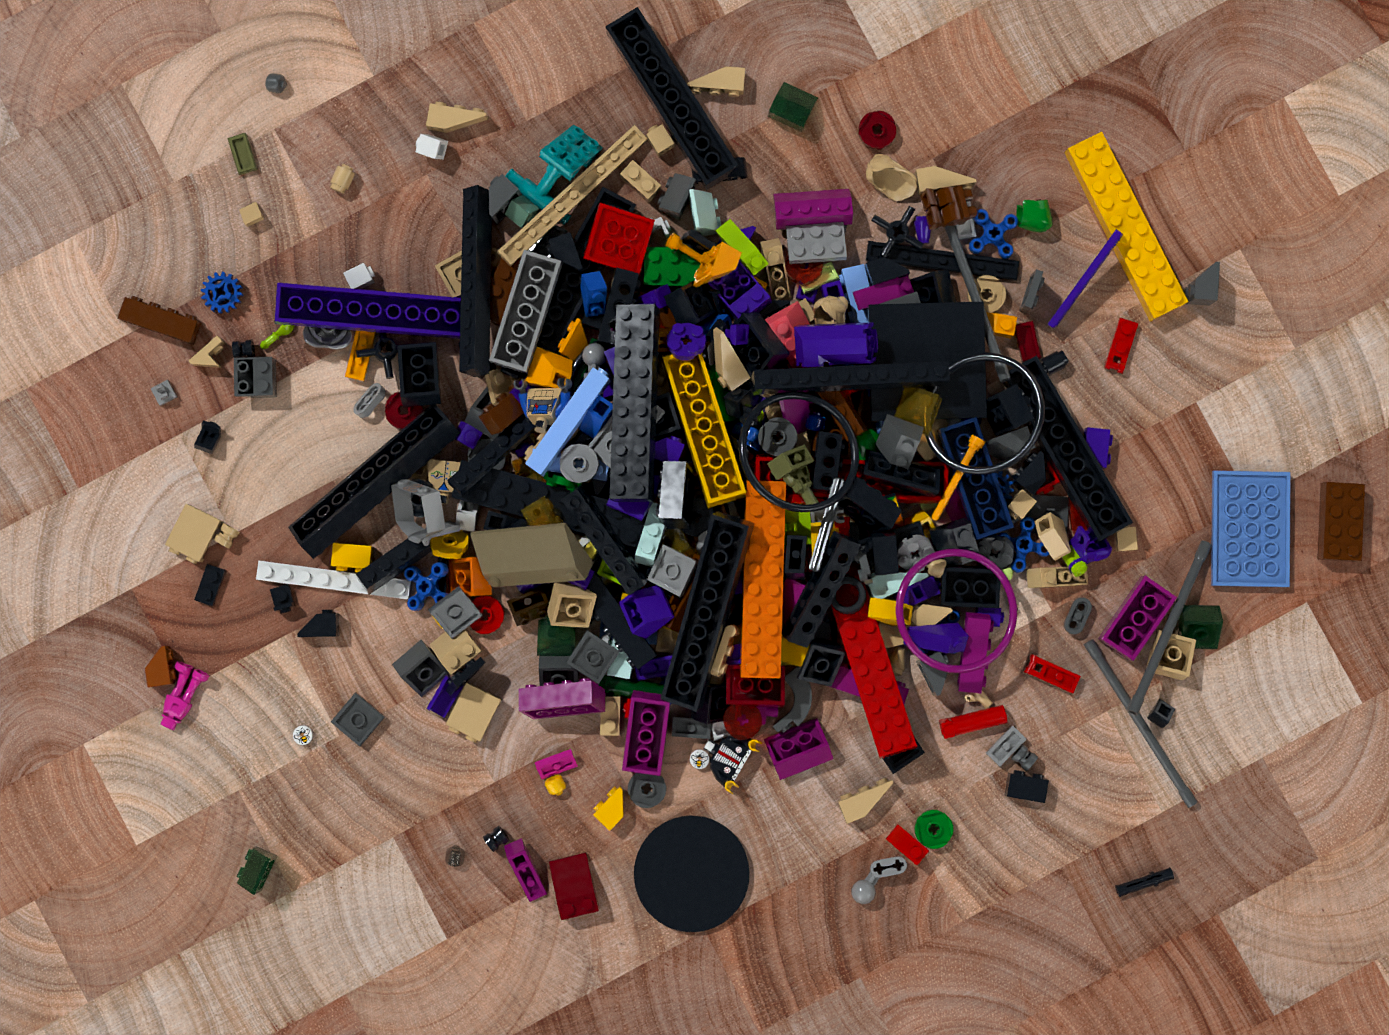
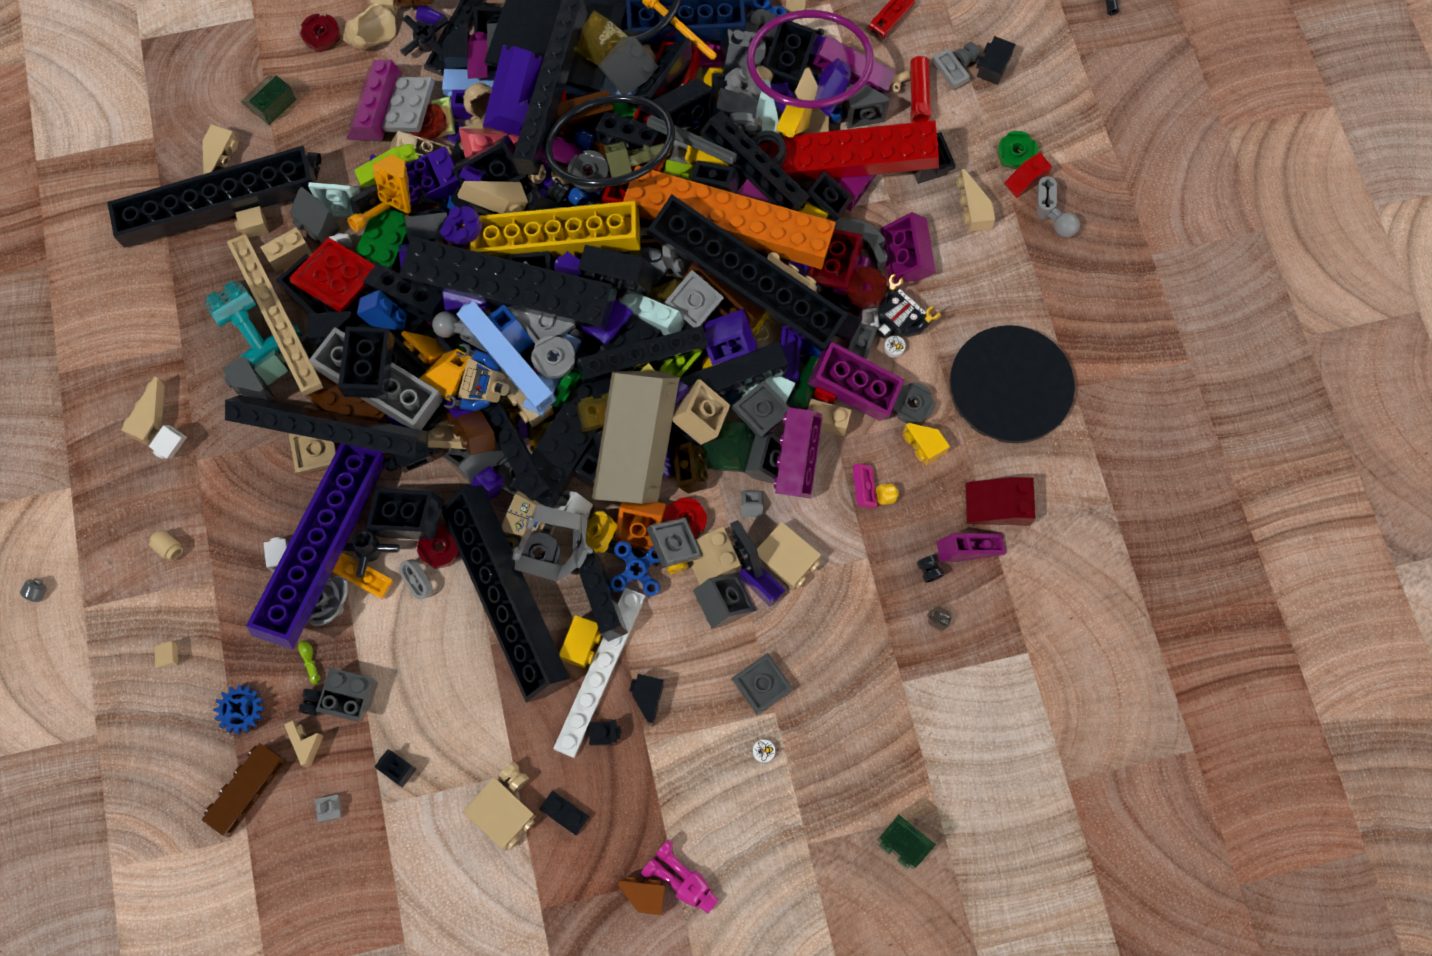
camera: 75 degrees left, 15 degrees down
(242, 153) = (95, 648): olive tile -> none
(516, 668) = (751, 503): none -> light grey slope
(528, 303) = (366, 362): none -> black brick

